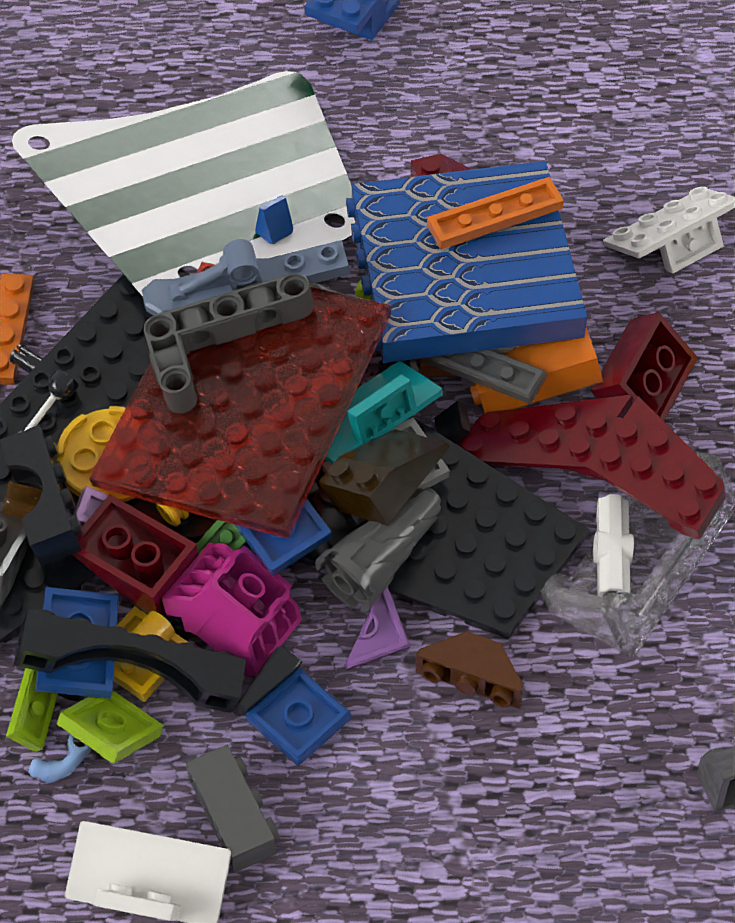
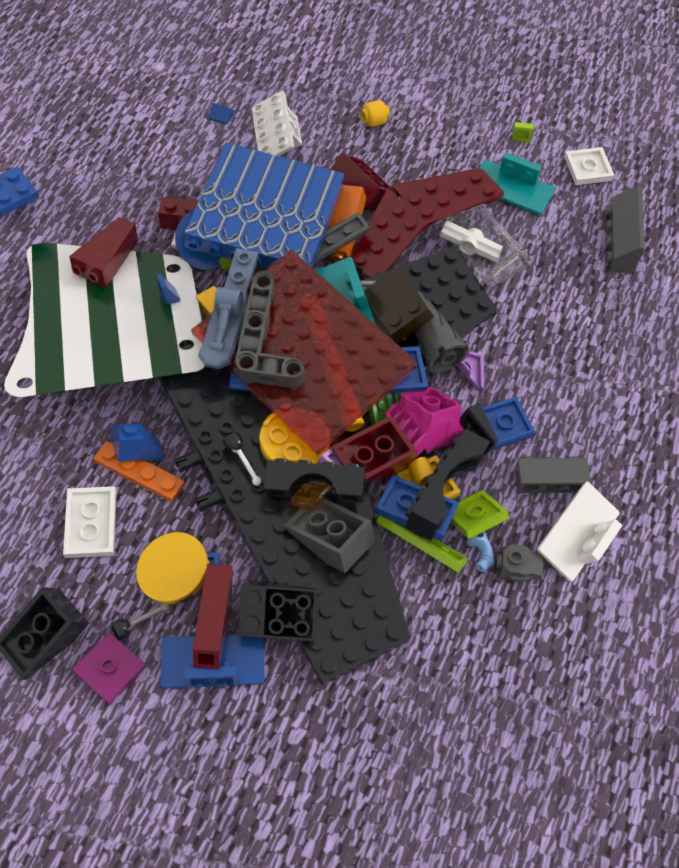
camera: 70 degrees left, 5 degrees up
(38, 300) = (135, 443): none -> blue slope
(58, 811) = (519, 563): none -> dark grey hand
(312, 139) = (105, 252): none -> dark red slope
(473, 667) = (514, 330): reddish brown slope -> none
(495, 213) = (254, 177): orange plate -> none
(663, 157) = (221, 113): none -> blue slope

